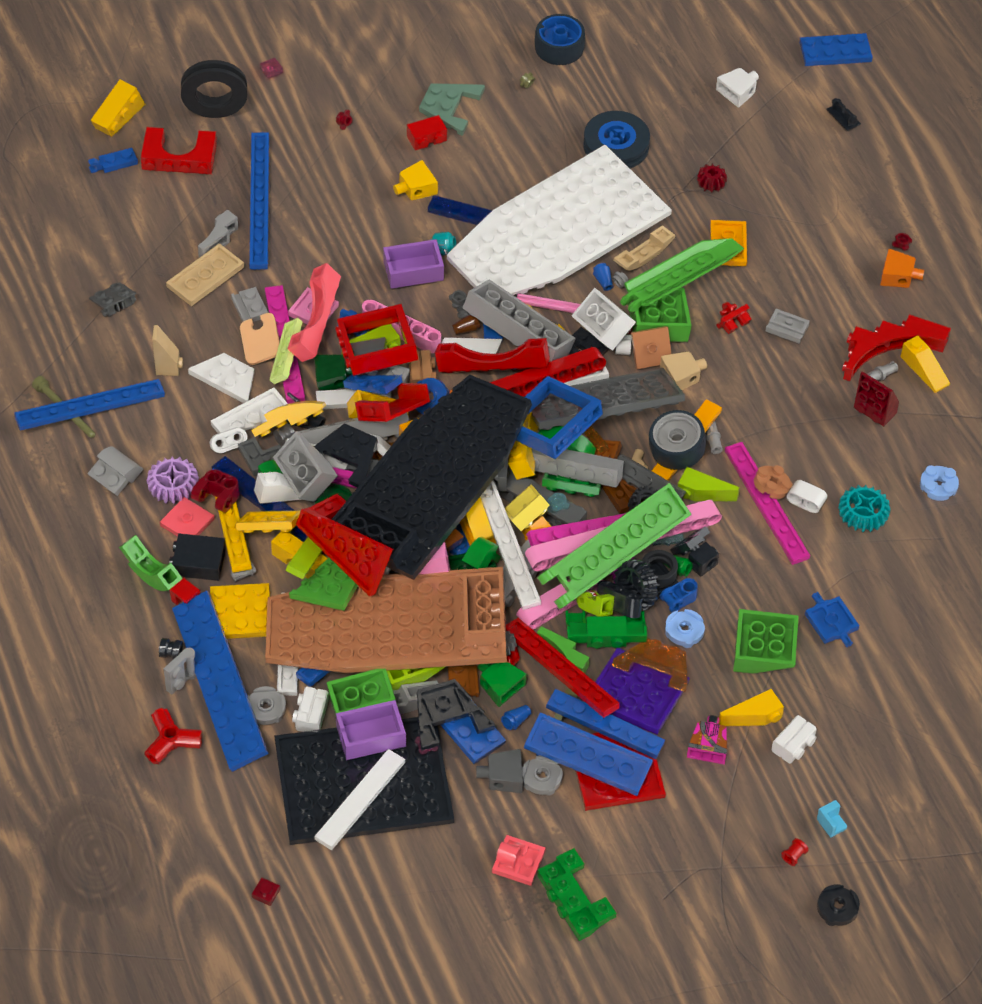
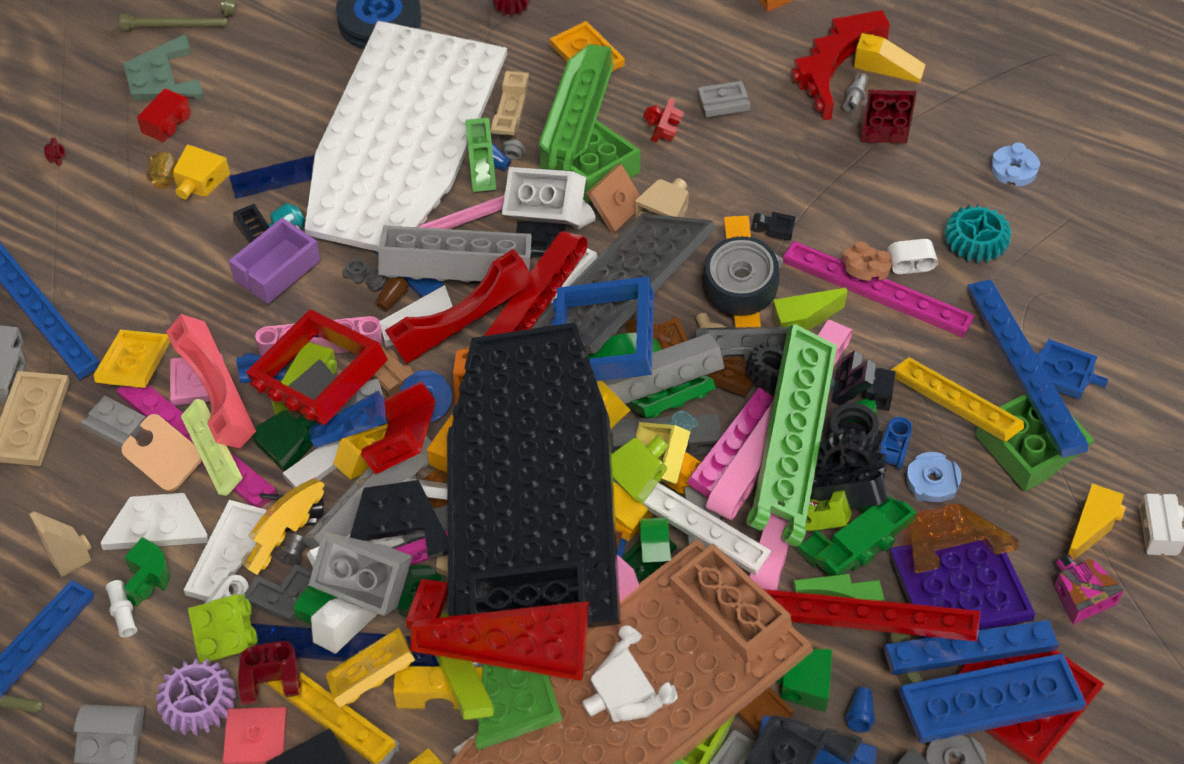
camera: 35 degrees left, 0 degrees up
(171, 410) = (121, 609): none -> white pin
(202, 400) = (150, 570): none -> green brick
(212, 451) = (222, 628): none -> lime plate
(285, 274) = (132, 358): none -> yellow plate
(387, 611) = (623, 686): none -> white torso
(395, 166) = (161, 169): none -> clear yellow head
(422, 225) = (246, 214): none -> black slope
(456, 57) = (129, 22): none -> olive piece
(500, 505) = (638, 467): none -> lime torso
(593, 268) = (480, 154): none -> bright green slope
(738, 591) = (958, 399): none -> yellow tile
(740, 426) = (778, 225): none -> black plate
(799, 599) = (1027, 369): none -> blue plate

